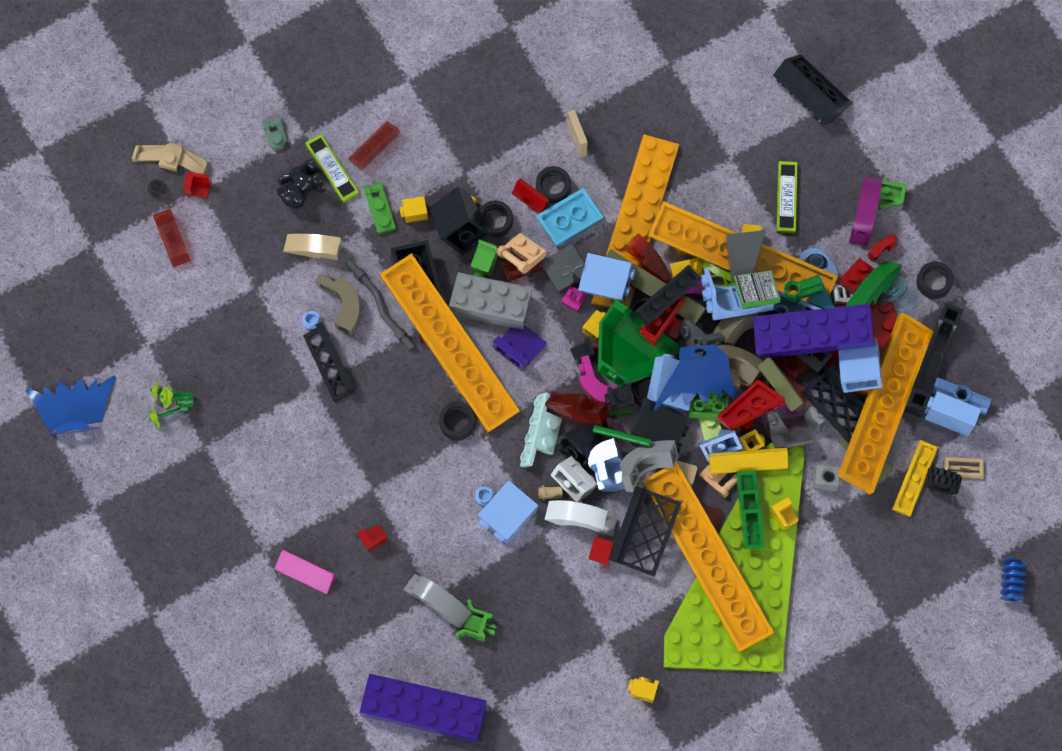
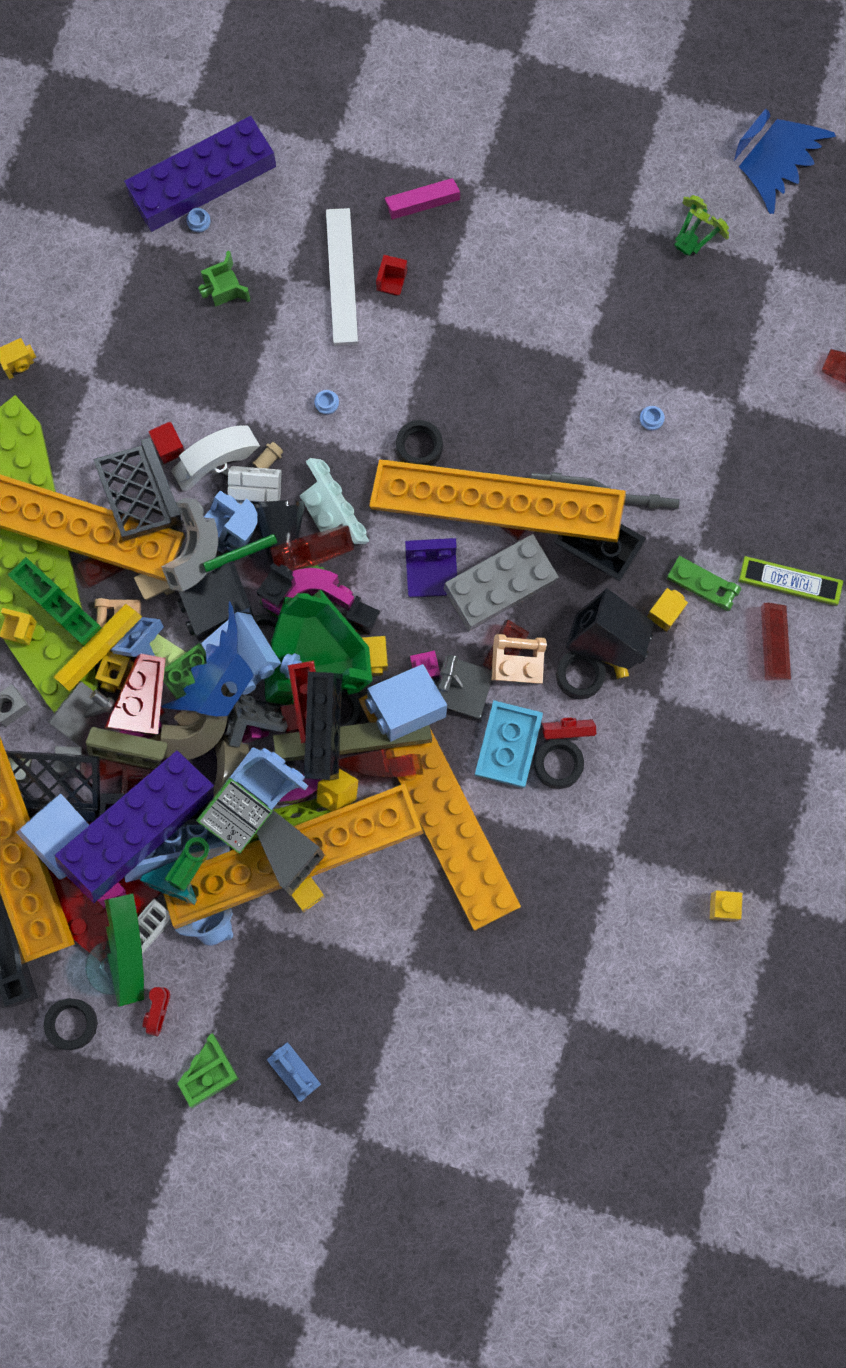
camera: 135 degrees right, 5 degrees up
(304, 179) = (796, 514): black animal -> none
(313, 245) = (724, 485): tan slope -> none
(334, 357) = (592, 397): black fence -> none
(350, 313) = (635, 464): dark tan arch -> none
(401, 566) = (341, 277): none -> white tile
(438, 599) = (276, 263): light grey arch -> none
(452, 682) = (198, 220): none -> light blue plate
(484, 259) = (547, 618): bright green piece -> none
(507, 512) = (289, 402): light blue brick -> none
(539, 43) = (726, 906): none -> yellow brick
(577, 133) = (585, 834): tan tile -> none
(649, 355) = (289, 660): none -> light blue plate
(786, 197) = (309, 976): tile -> none
(812, 88) = (390, 1131): black slope -> none
(837, 158) = (293, 1071): none -> medium blue hinge
(855, 275) = (158, 950): red plate -> none
(866, 210) = (206, 1033): magenta arch -> none

